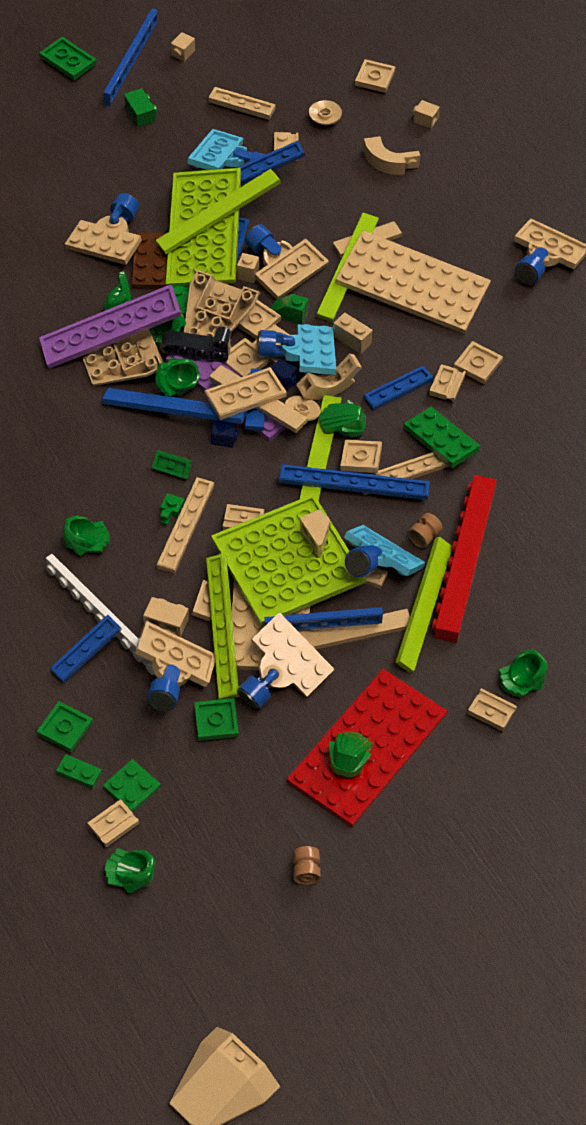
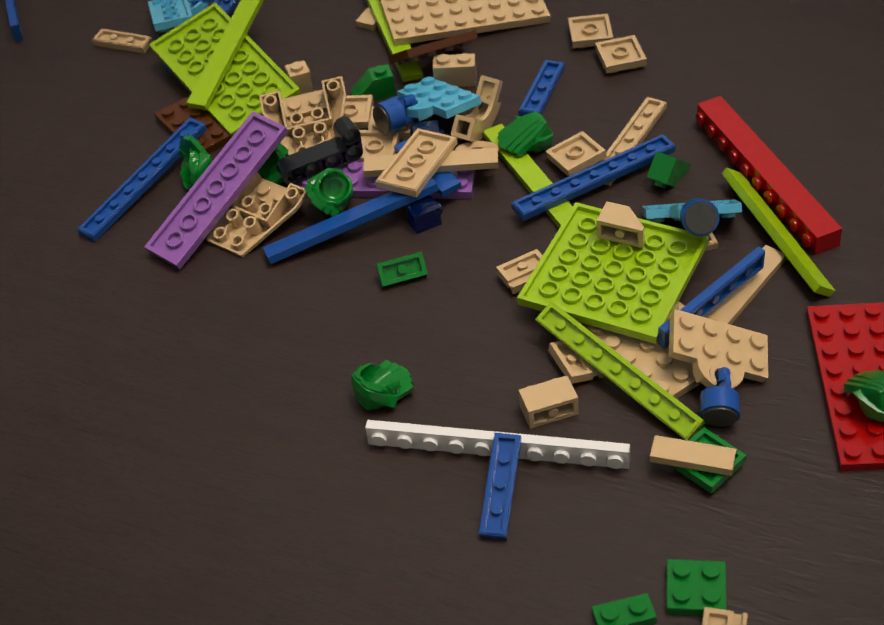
camera: 30 degrees left, 10 degrees down
(65, 726) = (560, 579): green plate -> none
(82, 282) = (138, 182): none -> blue tile
(110, 235) = (129, 127): tan plate -> none
(140, 107) = (57, 22): green brick -> none
(170, 152) = (122, 41): none -> tan tile
(170, 506) = (440, 306): green plate -> none
(173, 663) = (619, 429): tan plate -> none
(185, 525) = (472, 314): tan tile -> none
(206, 710) = (693, 455): none -> tan tile
(284, 265) = (329, 57): tan plate -> none
(345, 304) = (433, 48): none -> reddish brown plate
(405, 509) = (667, 170): none -> green slope
(425, 530) = (705, 173): medium nougat wheel -> none
(441, 437) = (628, 98): green plate -> none
(447, 383) = (582, 59): tan plate -> none
(477, 396) = (620, 54): none -> tan plate

